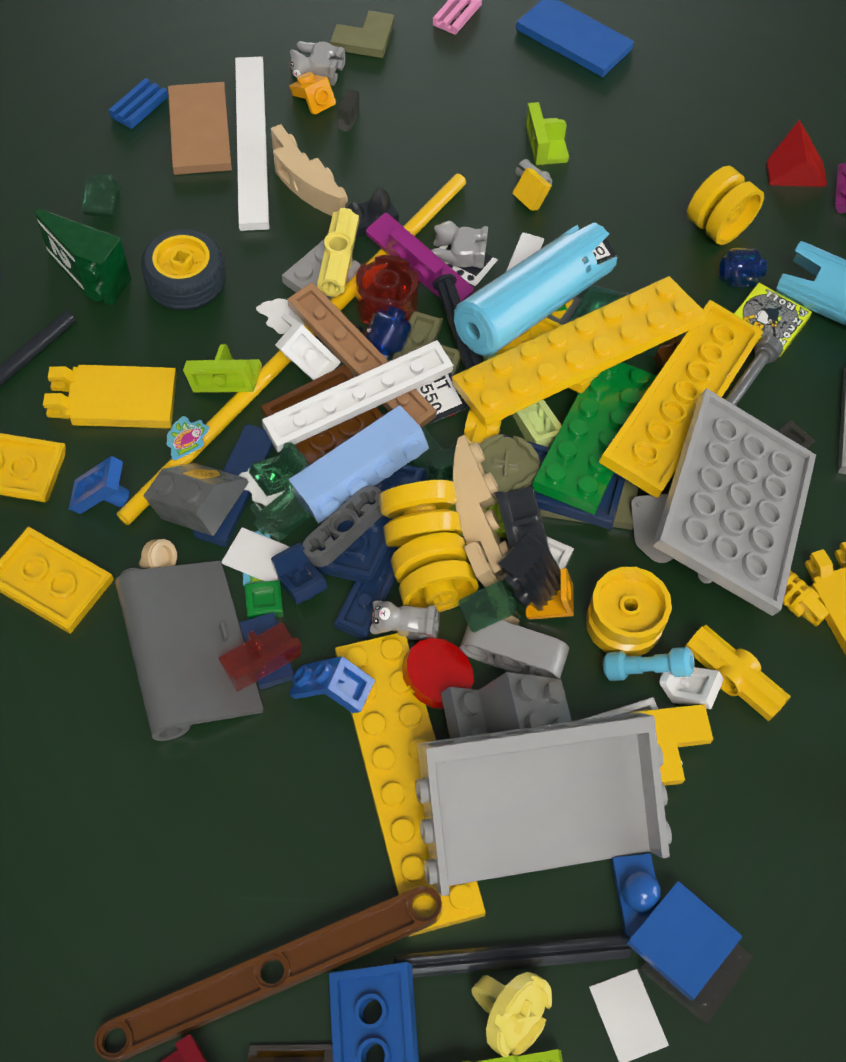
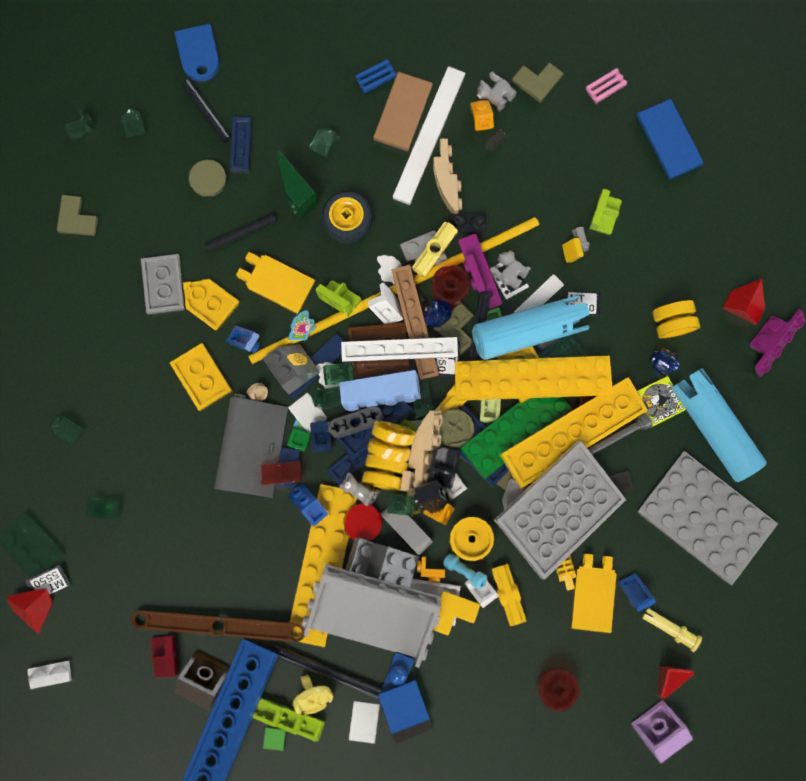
camera: 30 degrees right, 20 degrees up
(599, 697) = (433, 574): none -> light orange bracket

